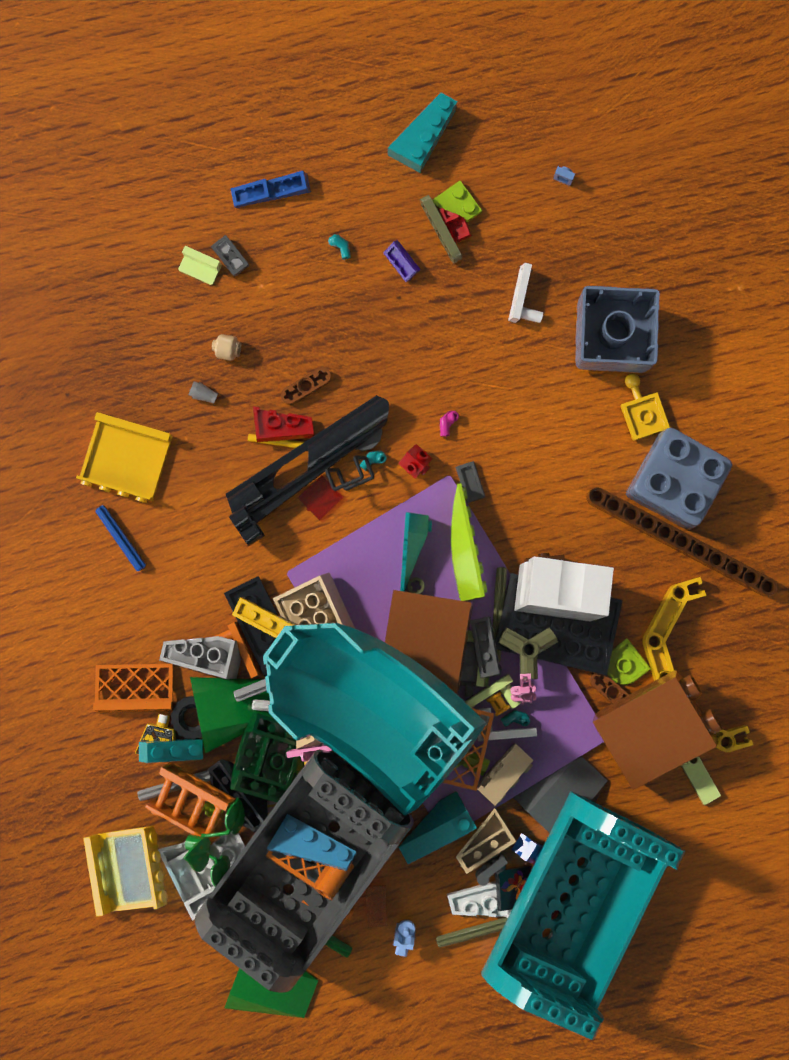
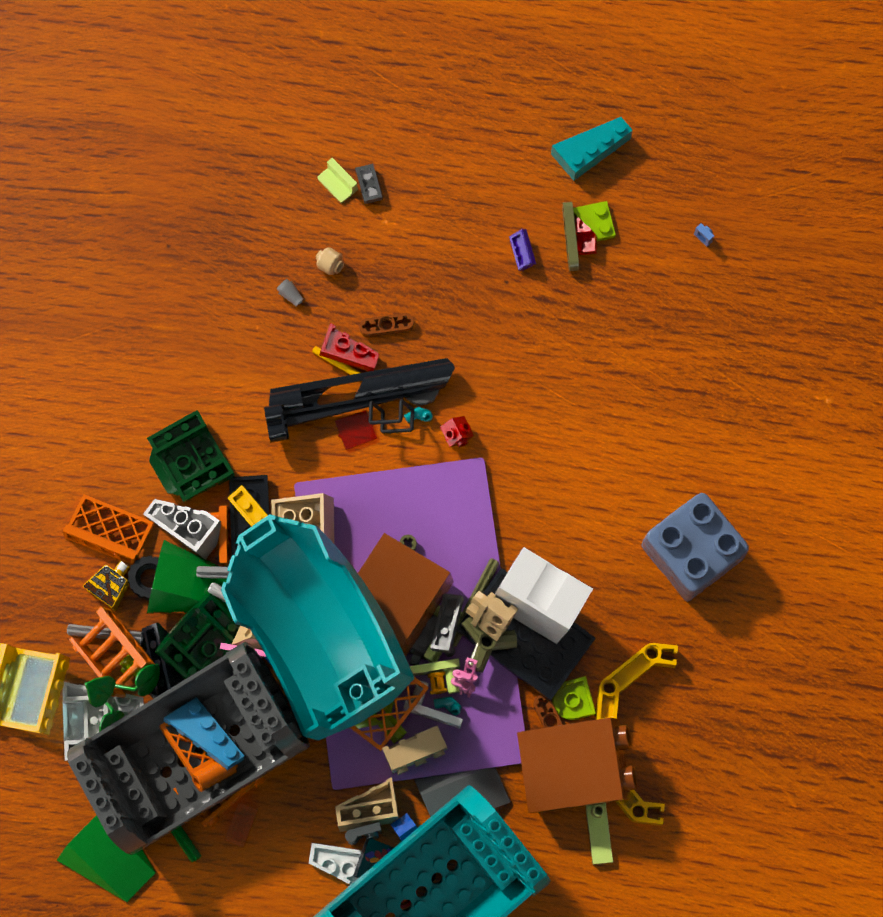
camera: 25 degrees right, 10 degrees down
(120, 538) = (158, 391): blue axle -> none
(125, 458) = (195, 321): yellow panel -> none
(170, 750) = (114, 594): teal arch -> none
(178, 591) = (188, 458): none -> dark green slope
(272, 189) = (429, 141): blue slope -> none
(340, 242) = (475, 214): teal arm -> none
(404, 937) = (254, 862): light blue hips -> none
(415, 534) = (427, 497): teal wedge -> none
(442, 825) = (334, 775): teal wedge -> none
(446, 421) = (502, 408): dark pink arm -> none
(464, 551) = (465, 530): lime wedge -> none
(469, 478) = (500, 472): dark grey tile -> none
(471, 932) = (312, 889): olive axle -> none
(517, 310) = (610, 336): white piece -> none
(525, 626) = (490, 614): none -> tan hips
(617, 329) = (692, 386): sand blue brick -> none
(644, 414) = (688, 476): yellow plate -> none
(690, 542) = (676, 617): reddish brown beam -> none

